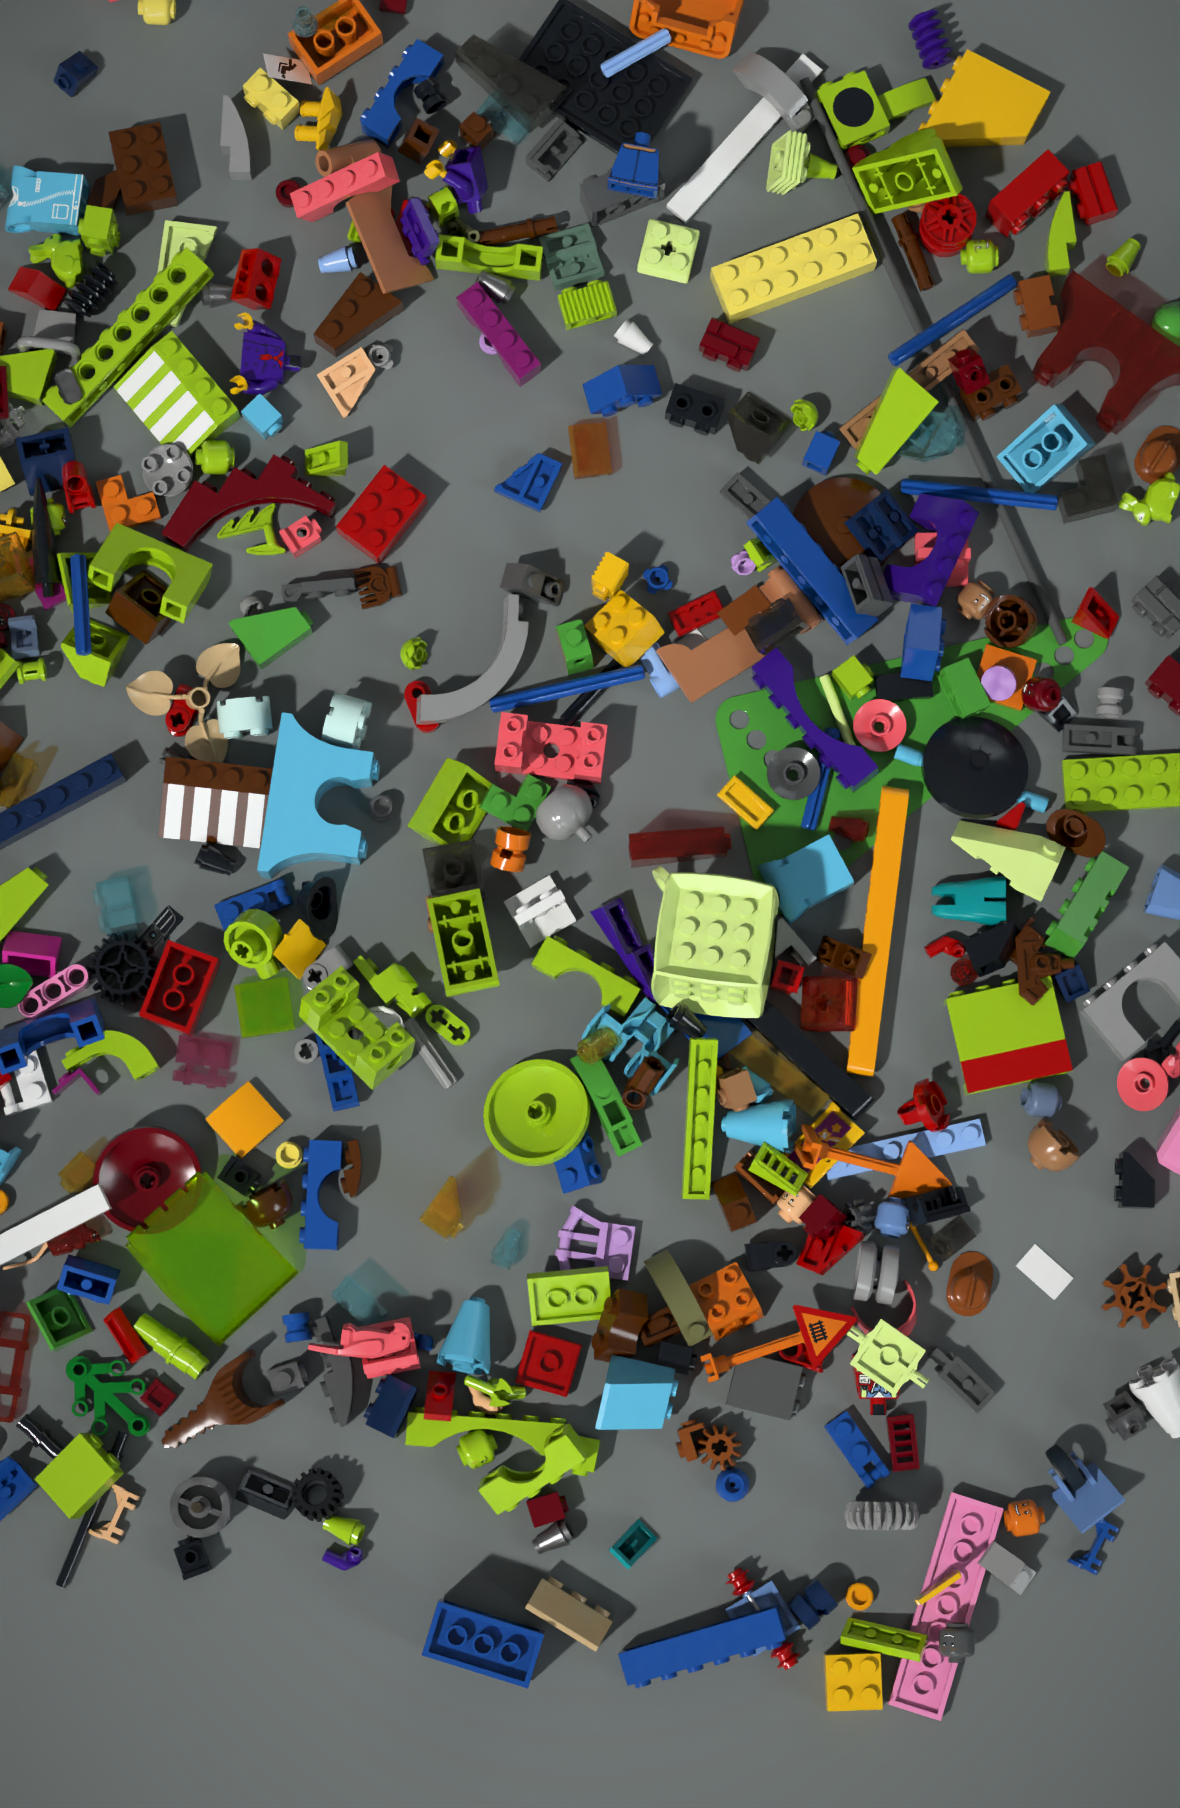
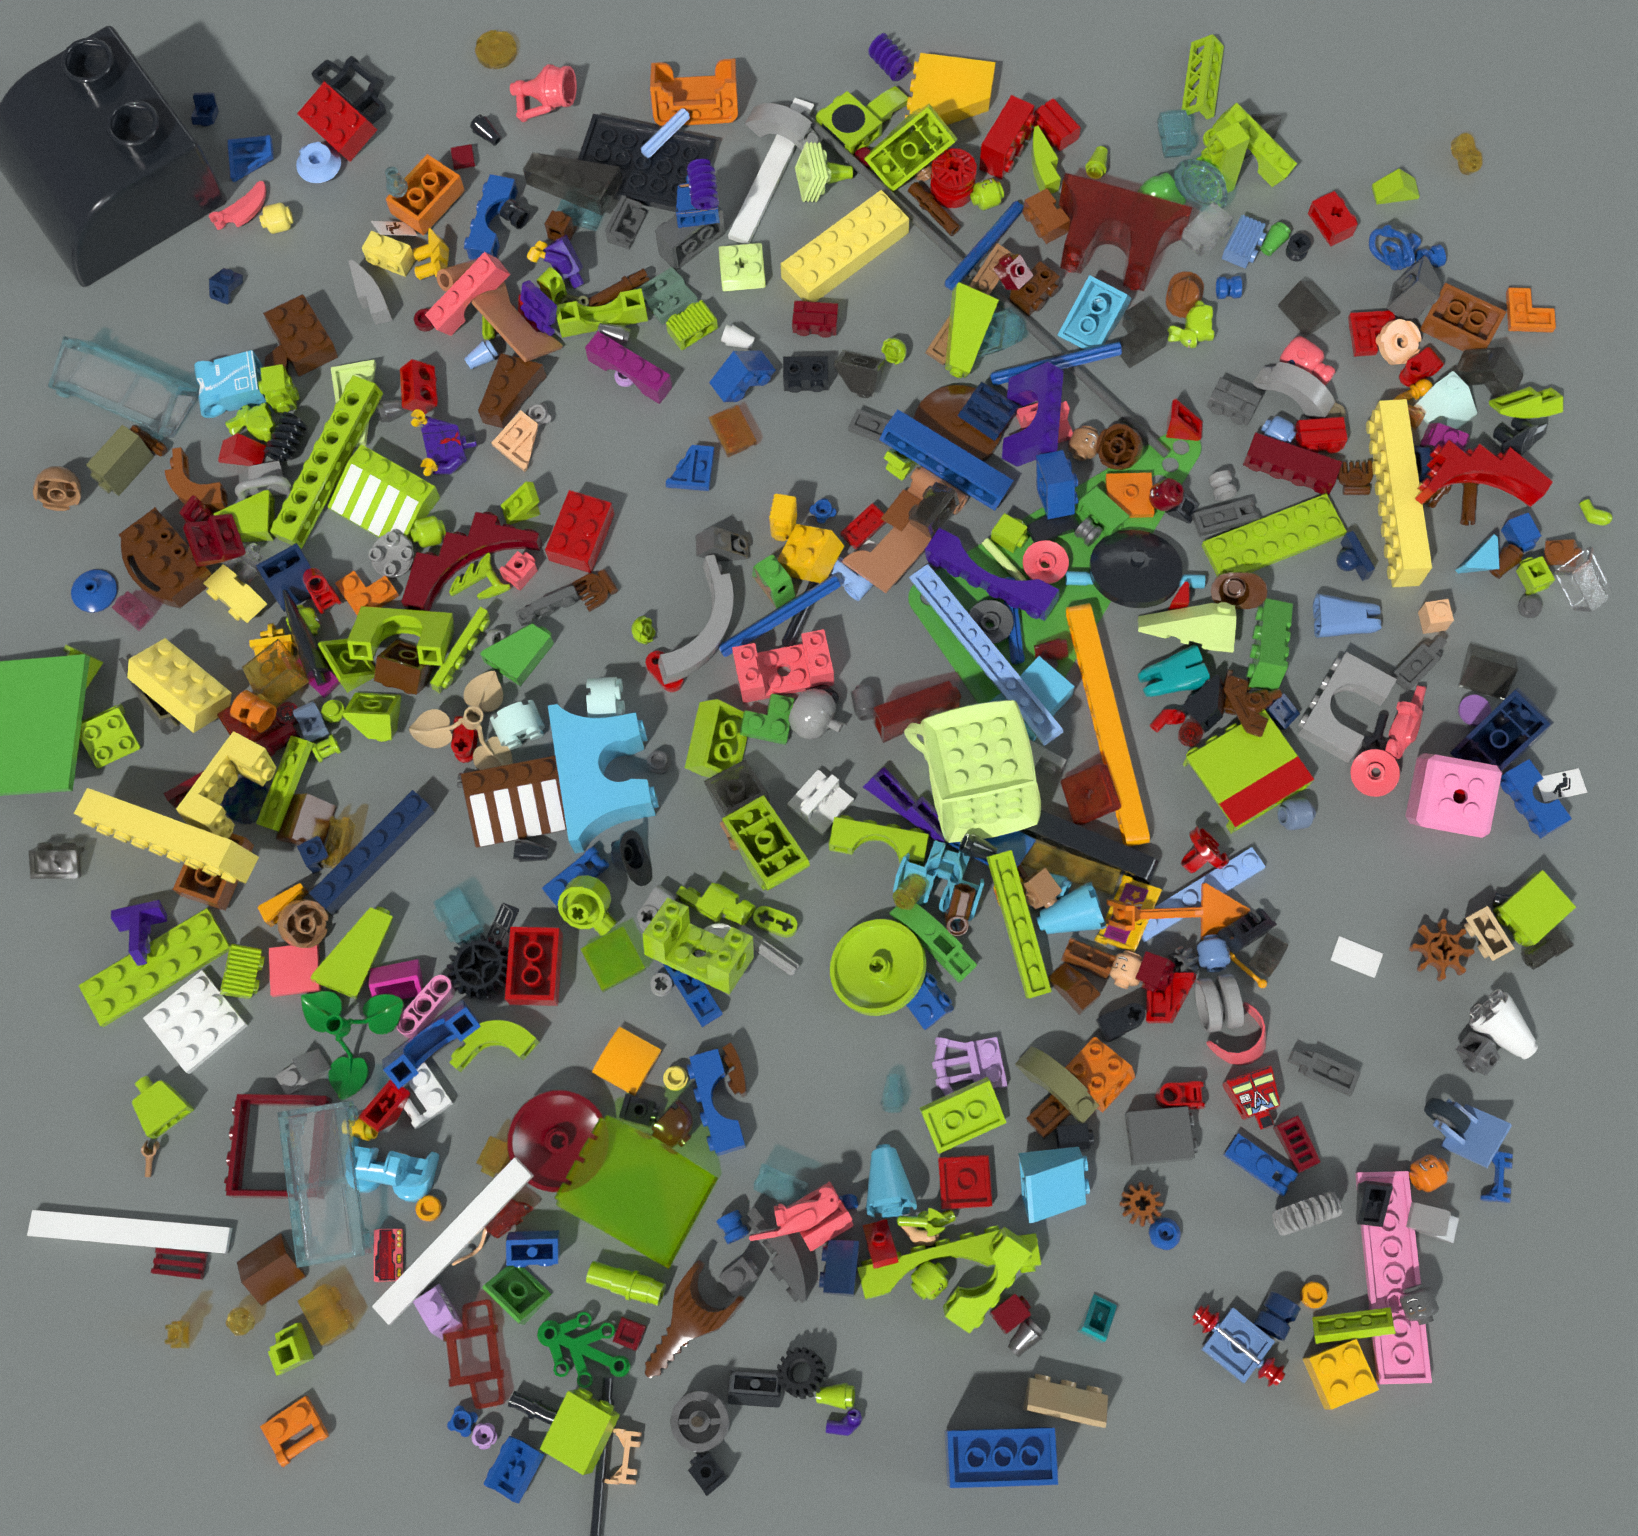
camera: 15 degrees left, 10 degrees down
(51, 630) = (332, 711): none -> lime plate
(68, 386) = (288, 512): flat silver piece -> none
(69, 1078) = (462, 1076): magenta bracket -> none
(80, 605) = (350, 677): blue axle -> none
(125, 1336) = (582, 1288): red tile -> none
(205, 1053) = (573, 1016): clear pink plate -> none
(218, 601) = (456, 657): none -> lime plate
(263, 417) = (457, 489): medium azure brick -> none
(298, 949) = (626, 898): yellow piece -> none
(418, 140) = (515, 246): reddish brown brick -> none
(445, 1211) = (829, 1079): clear yellow slope -> none
(514, 840) = (781, 749): orange wheel -> none
(620, 1325) = (1016, 1125): reddish brown brick -> none
(625, 817) = (863, 702): none -> flat silver brick
(646, 158) = (702, 184): none -> dark purple piece
(685, 1445) = (1112, 1213): dark orange bracket -> none
(703, 1645) = (1195, 1389): blue brick -> none
(745, 567) = (890, 479): lavender plate -> none
(745, 802) = (956, 659): yellow tile -> none
(766, 1172) = (1087, 944): lime slope -> none
(772, 811) = (986, 654): none -> light blue plate
(787, 977) = (1048, 783): red brick -> none
(818, 1331) = (1188, 1068): orange piece -> none
(821, 452) = (918, 373): blue brick -> none
(843, 957) = (1087, 752): reddish brown slope -> none
(867, 585) = (994, 455): dark grey brick -> none
(887, 1356) = (1258, 1070): yellowish green plate -> none
(938, 1587) = (1383, 1260): yellow piece -> none
(940, 706) = (1088, 531): none -> flat silver wheel
(951, 1528) = (1372, 1202): none -> black slope
(969, 1284) = (1298, 988): dark orange piece -> none
(999, 682) = (1129, 496): piece -> none
(1051, 1148) = (1321, 850): medium nougat cylinder -> none
(1135, 1186) = (1402, 856): black slope -> none

